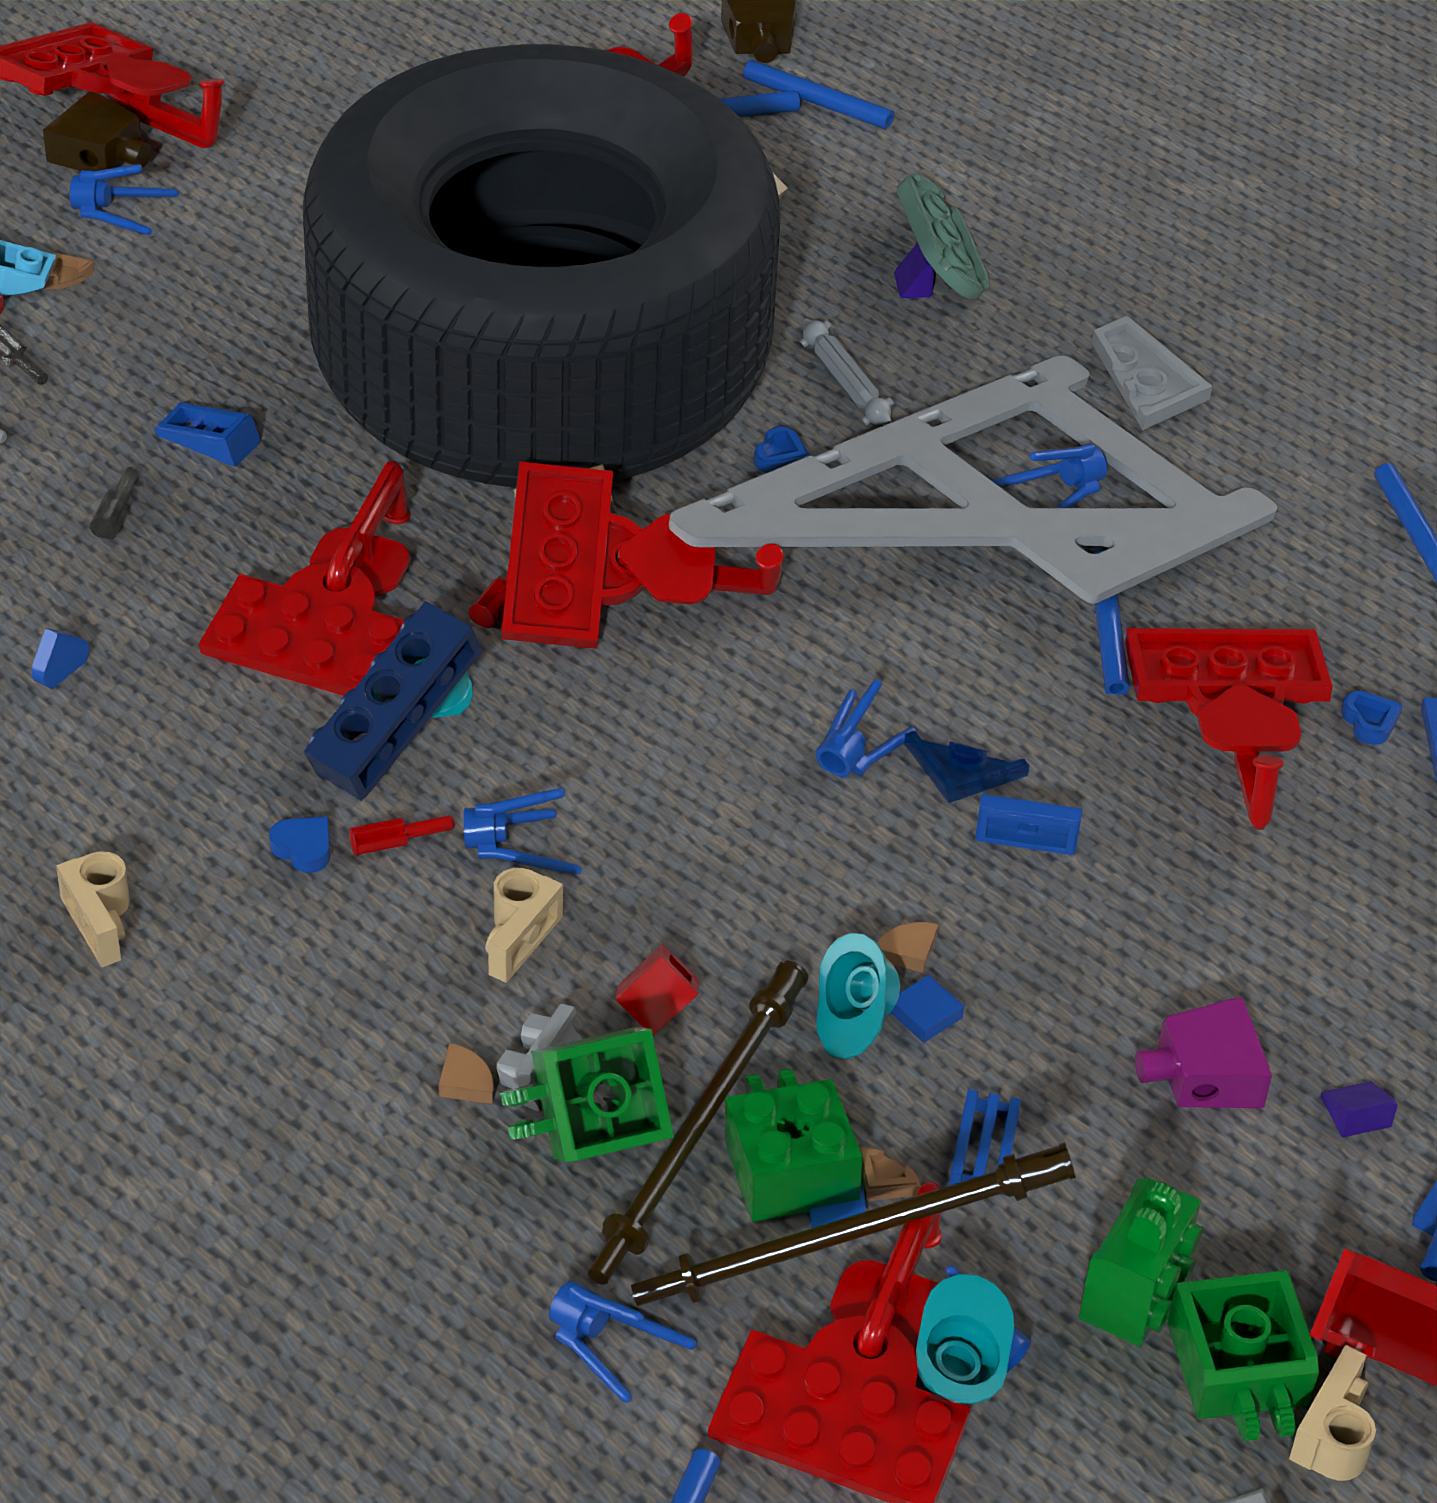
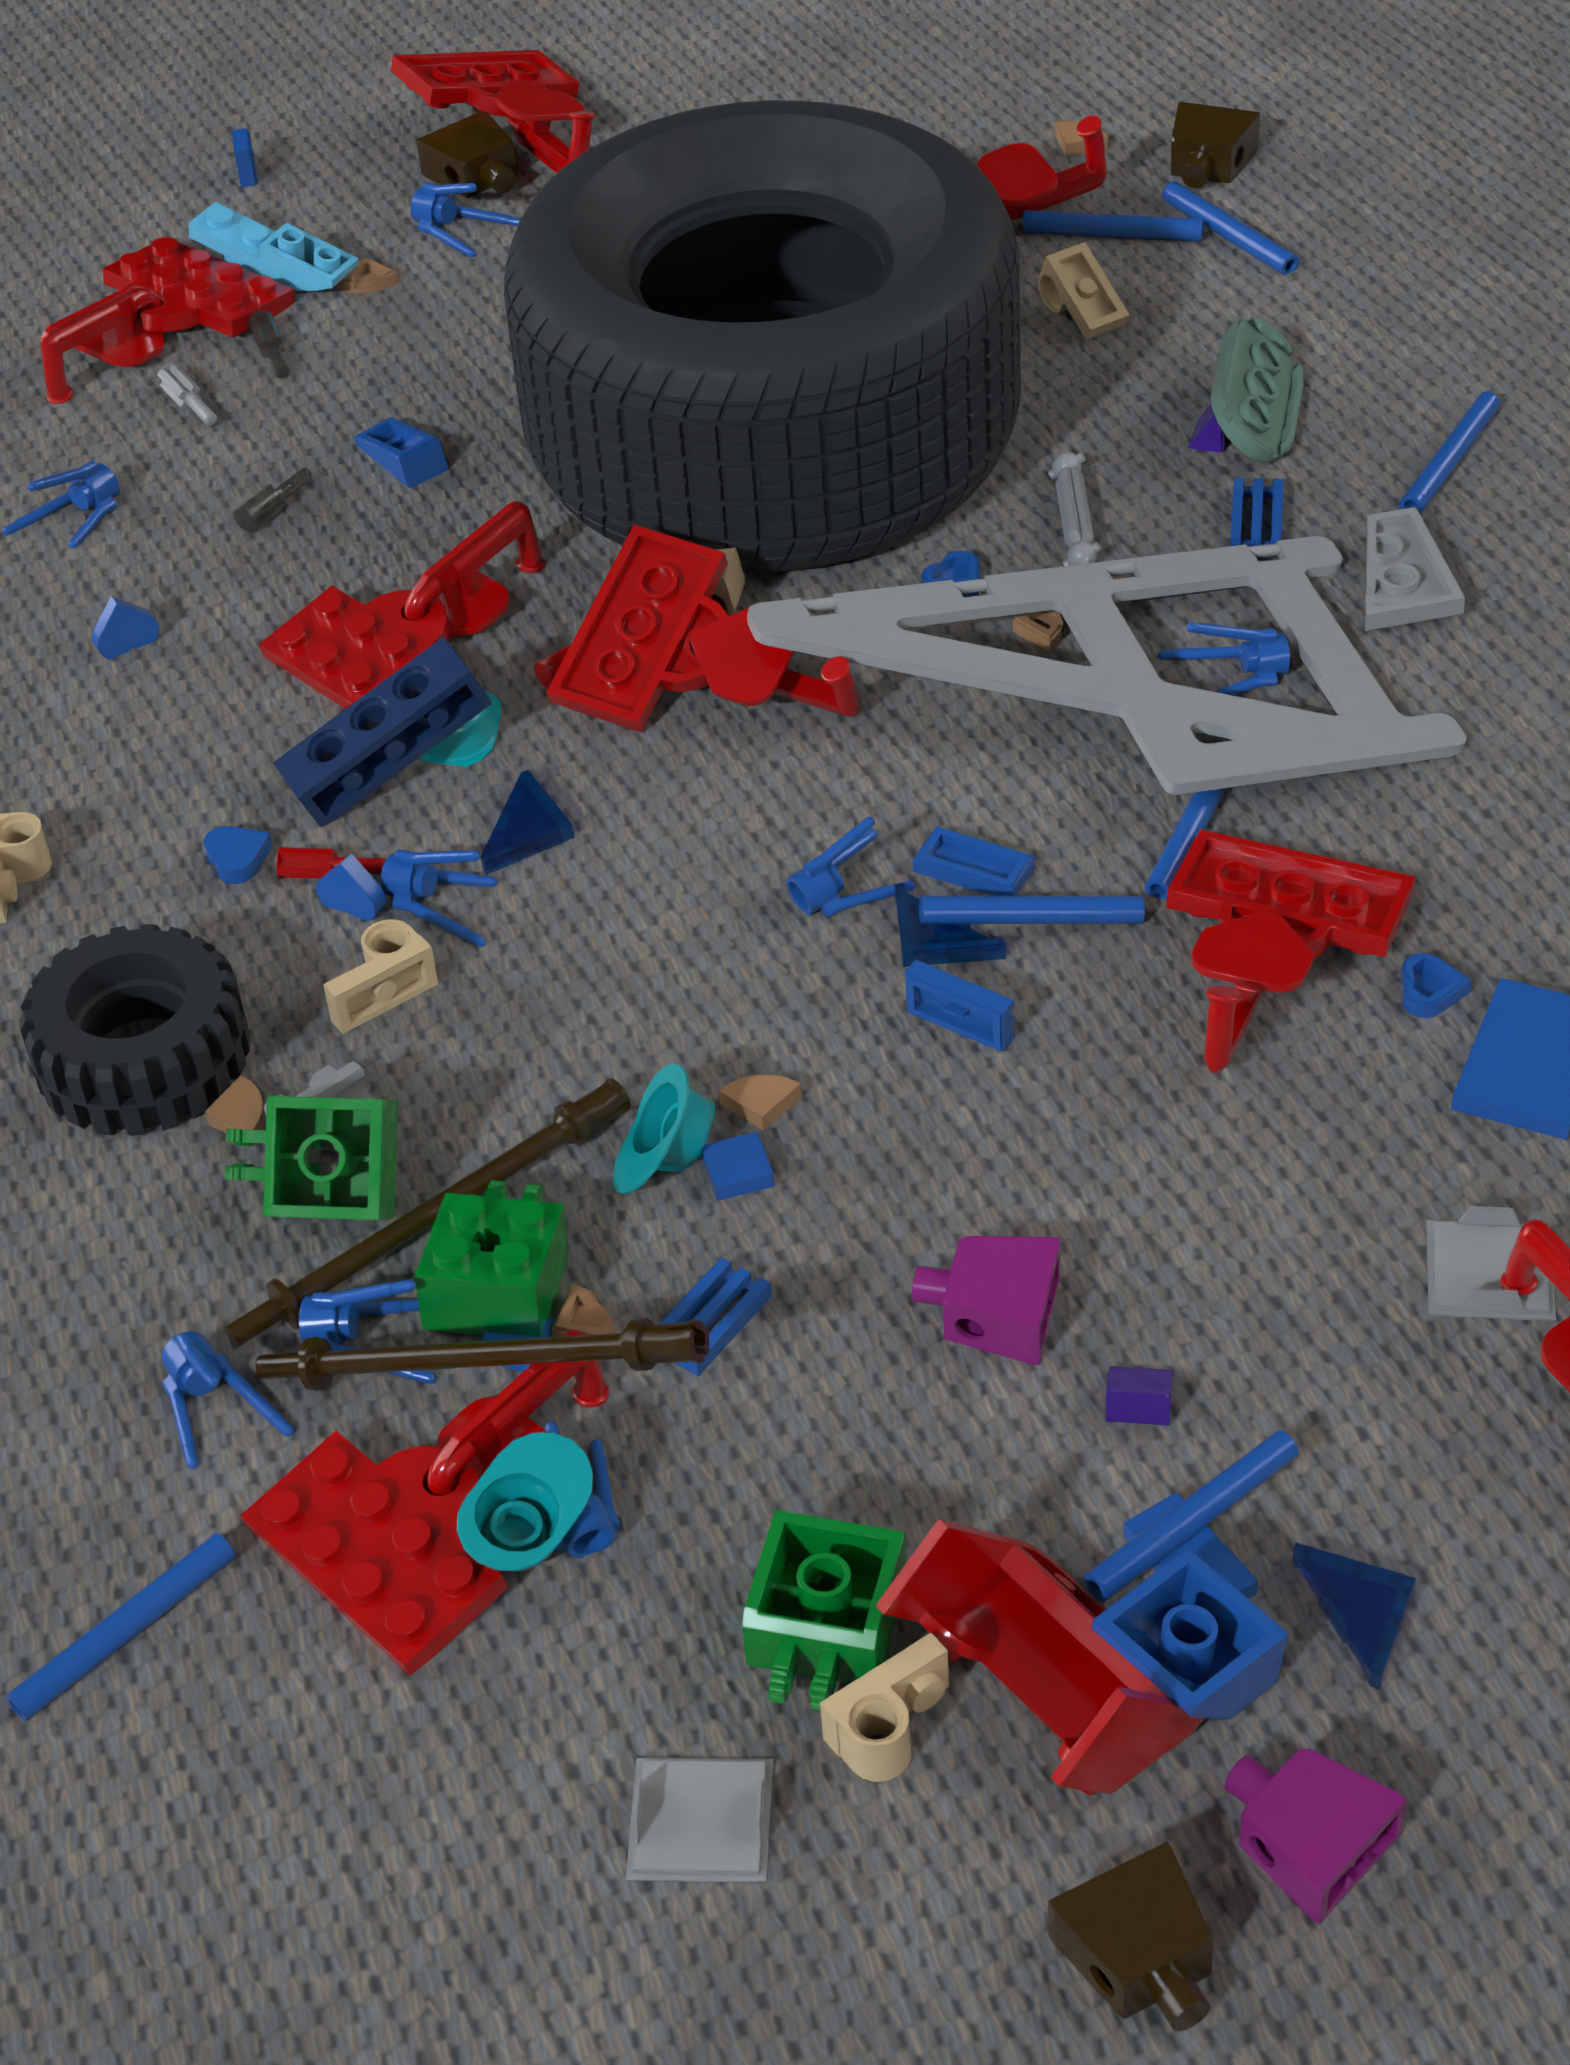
camera: 30 degrees right, 0 degrees up
(338, 1078) = (144, 1076): none -> black tyre
(439, 850) = (351, 890): none -> blue tile
(553, 751) = (526, 826): none -> clear blue tile
(638, 31) = (1069, 140): none -> medium nougat tile
(657, 989) = (471, 1074): red panel -> none
(679, 1232) = (338, 1313): none -> blue plant
(883, 484) = (1040, 628): none -> medium nougat tile
(955, 700) = (973, 863): none -> blue tile
(1000, 322) = (1258, 492): none -> blue tile
(1033, 728) = (1031, 910): none -> blue piece
(1118, 263) = (1451, 452): none -> blue piece
(1142, 1262) = (764, 1463): green hinge -> none

